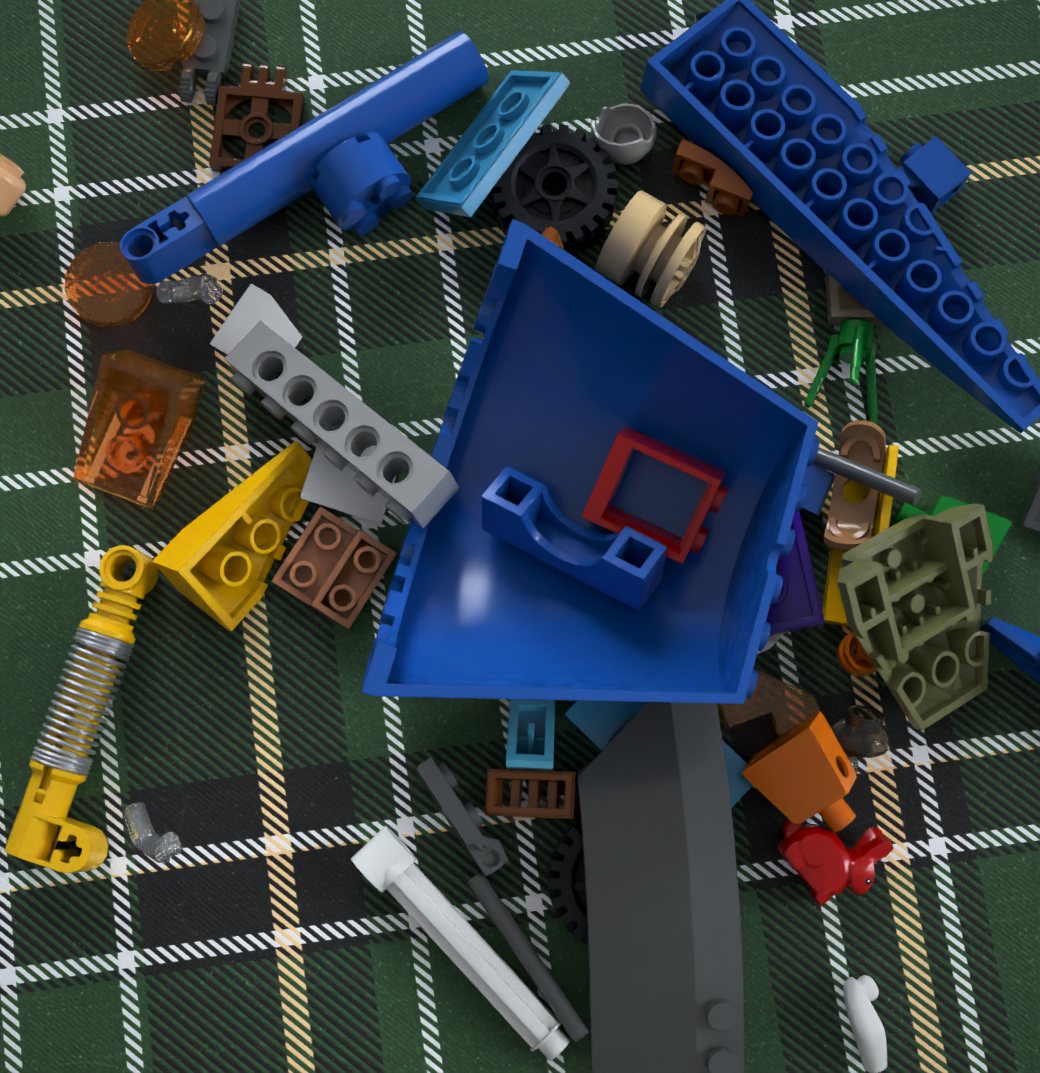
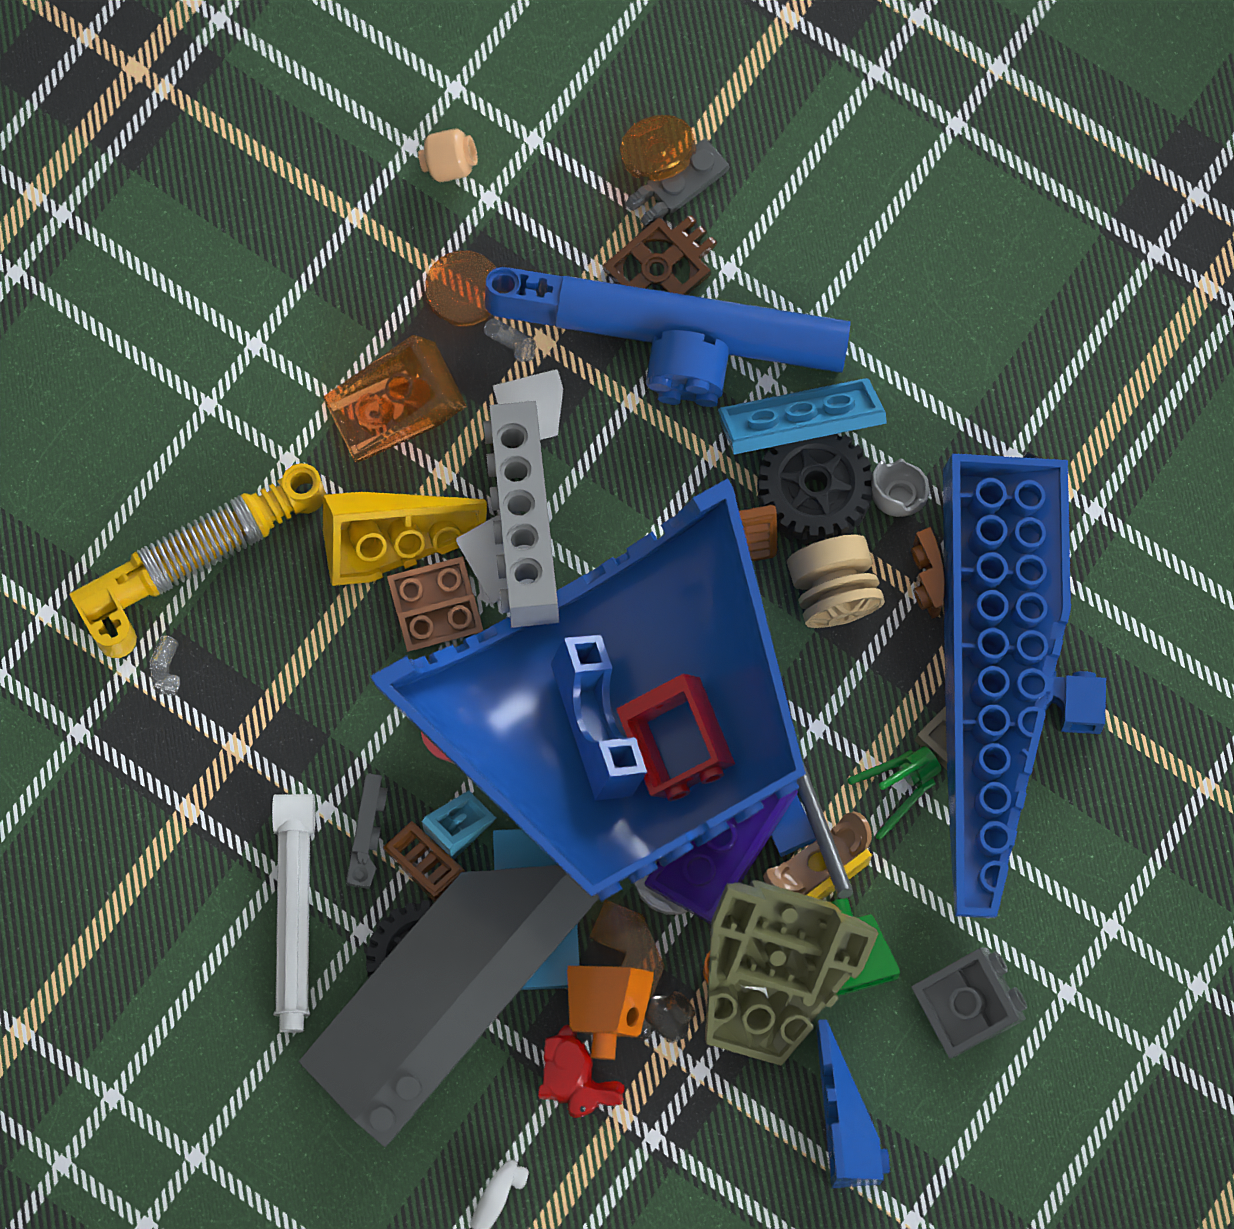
camera: 40 degrees right, 5 degrees down
(528, 957) = (326, 957): dark grey bar -> none

